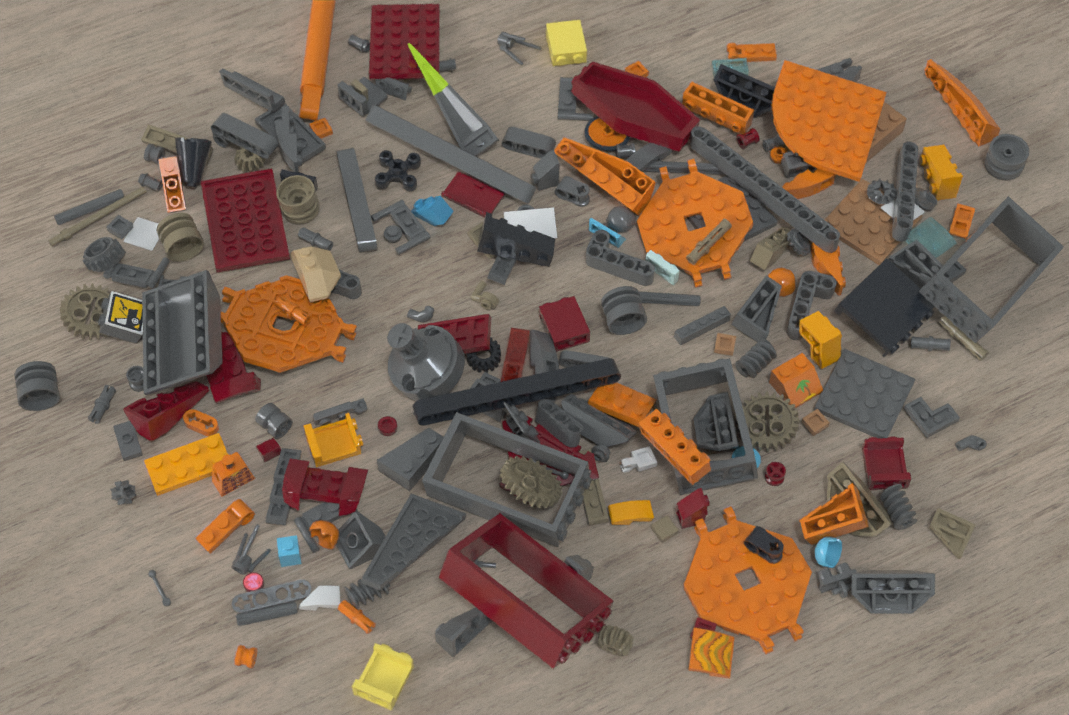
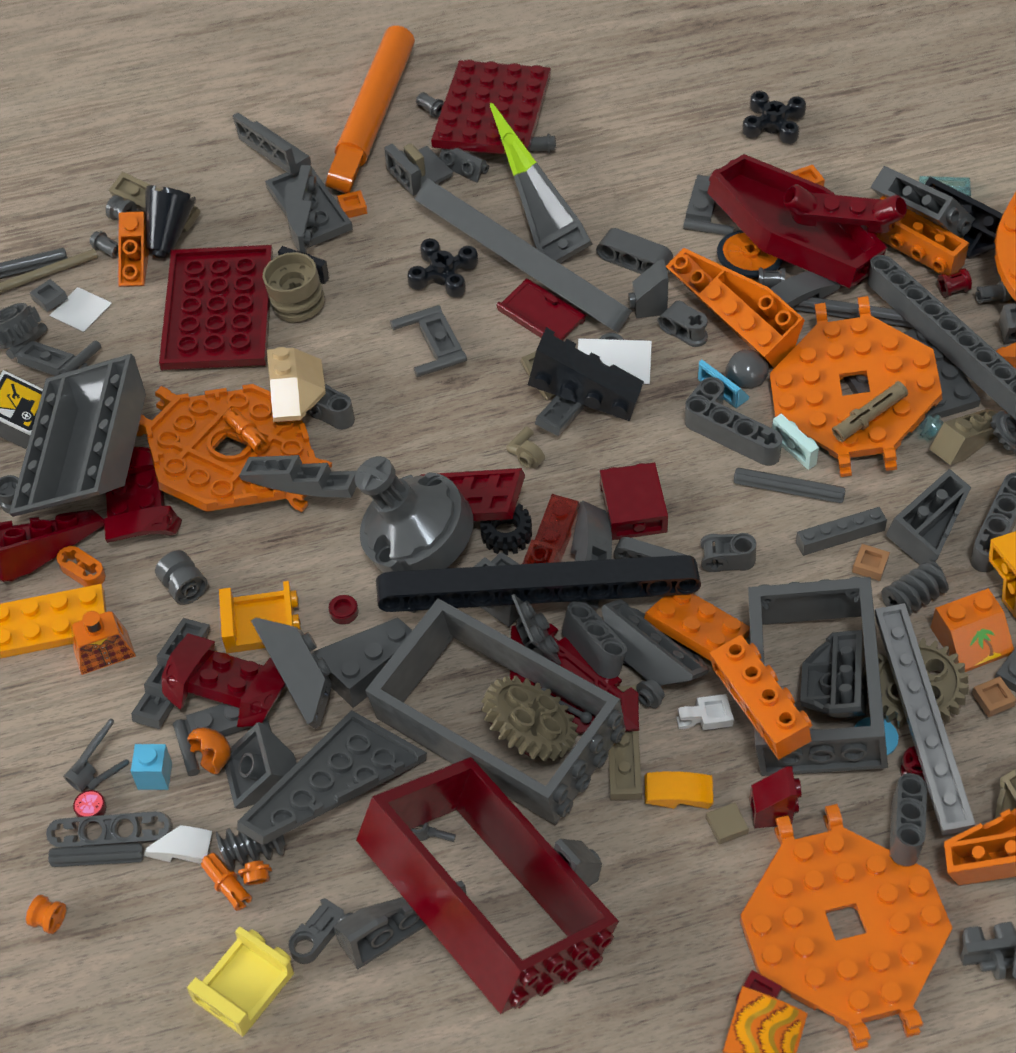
camera: 15 degrees right, 5 degrees down
(180, 237) = (120, 315): dark tan wheel -> none
(228, 521) = (90, 702): orange plate -> none
(230, 129) = (228, 189): dark grey beam -> none
(248, 161) = (245, 229): dark tan gear -> none
(269, 449) = (164, 618): dark red slope -> none
(315, 239) = (307, 343): dark grey axle -> none
(325, 416) = (273, 578): dark grey hinge -> none
(333, 339) = (292, 476): none -> dark grey slope
(356, 200) = (376, 299): dark grey beam -> none
(373, 470) = (298, 666): none -> dark grey wedge
(374, 608) = (255, 873): none -> orange plate
(393, 233) = (416, 349): dark grey plate -> none
(422, 316) = (431, 463): dark grey arm -> none
(423, 637) = (318, 930): none -> dark grey piece
(432, 210) = (478, 324): dark azure slope -> none
(508, 40) = (633, 121): dark grey plant -> none
(566, 43) = (714, 131): light yellow brick -> none
(605, 26) = (774, 117): none -> black gear
(615, 640) = (612, 985): dark tan gear -> none
(624, 310) = (724, 492): dark grey wheel -> none
(631, 350) = (730, 552): none -> dark grey piece
(687, 97) = (813, 207): none -> dark red plate
(719, 83) = (924, 201): none -> dark grey slope
(748, 244) = (931, 426): none -> clear light blue plate
(752, 52) = (981, 172): orange plate -> none
(764, 545) = (880, 873): black piece -> none
(775, 444) = (924, 720): none -> light grey plate
(775, 509) = (908, 819): none -> dark grey beam
(777, 153) = (993, 309): orange plate -> none
(785, 278) = (981, 482): orange hair -> none
(828, 551) = (984, 900): medium azure hair -> none

